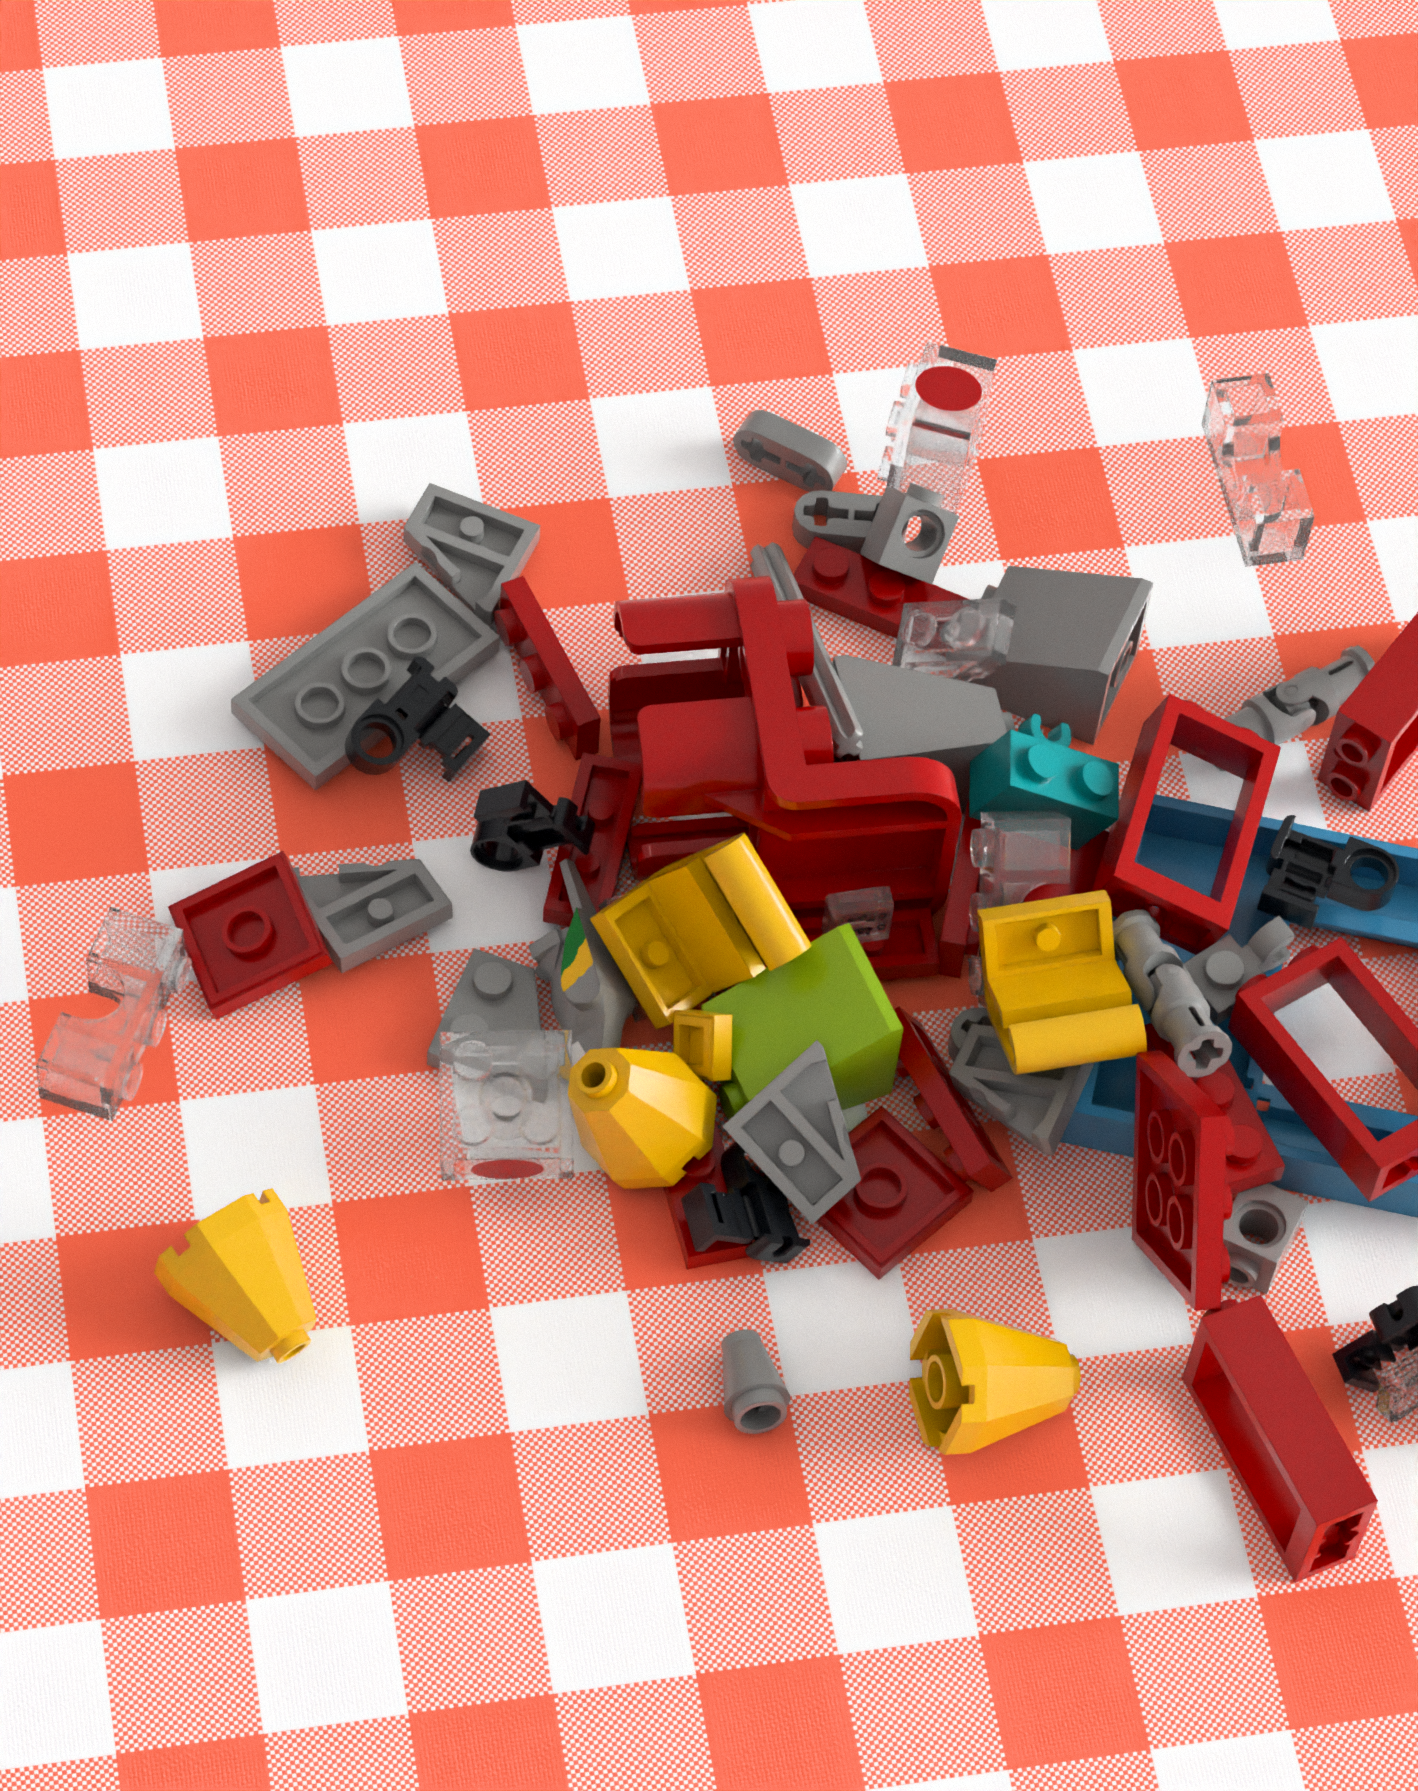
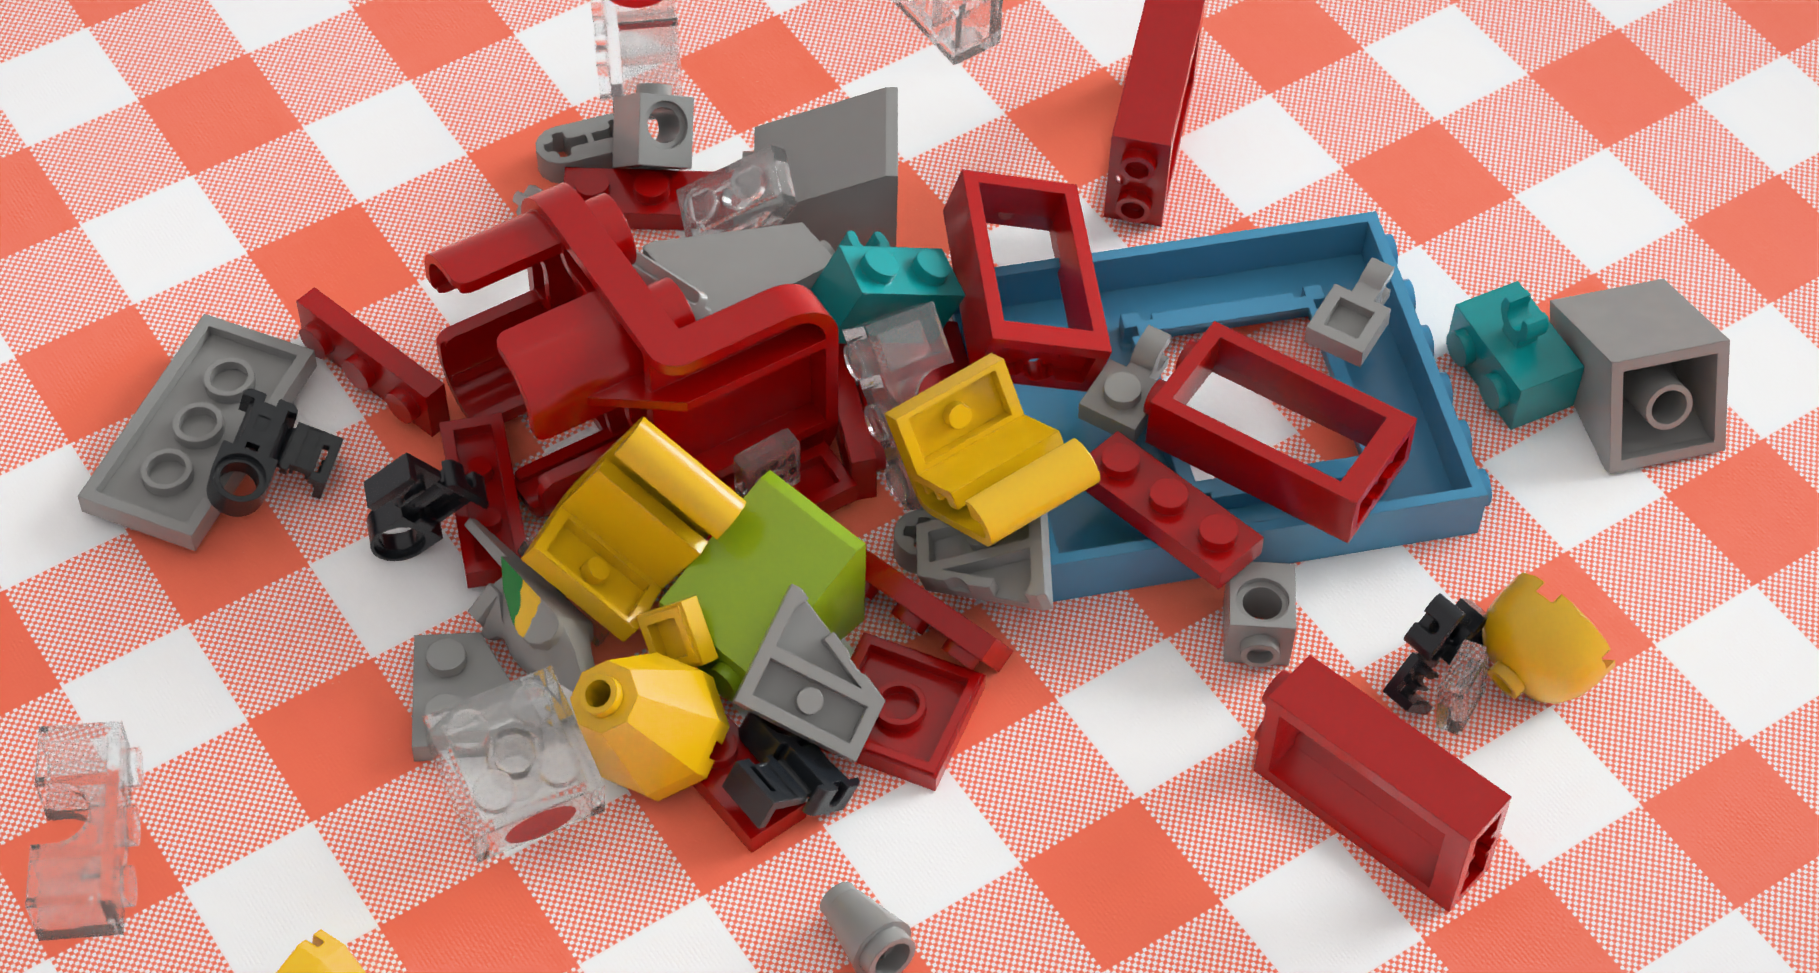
camera: 20 degrees left, 5 degrees down
(250, 935) = (189, 704): red tile -> none
(373, 907) = (292, 637): light grey wing -> none
(470, 546) = (248, 283): light grey wing -> none
(789, 451) = (508, 105): light grey beam -> none
(985, 1380) = (1083, 841): yellow cone -> none
(1169, 995) = (1101, 427): light grey piece -> none
(1181, 1180) = (1187, 580): red plate -> none
(1304, 699) = (1068, 145): light grey piece -> none
(1309, 867) = (1152, 279): black piece -> none

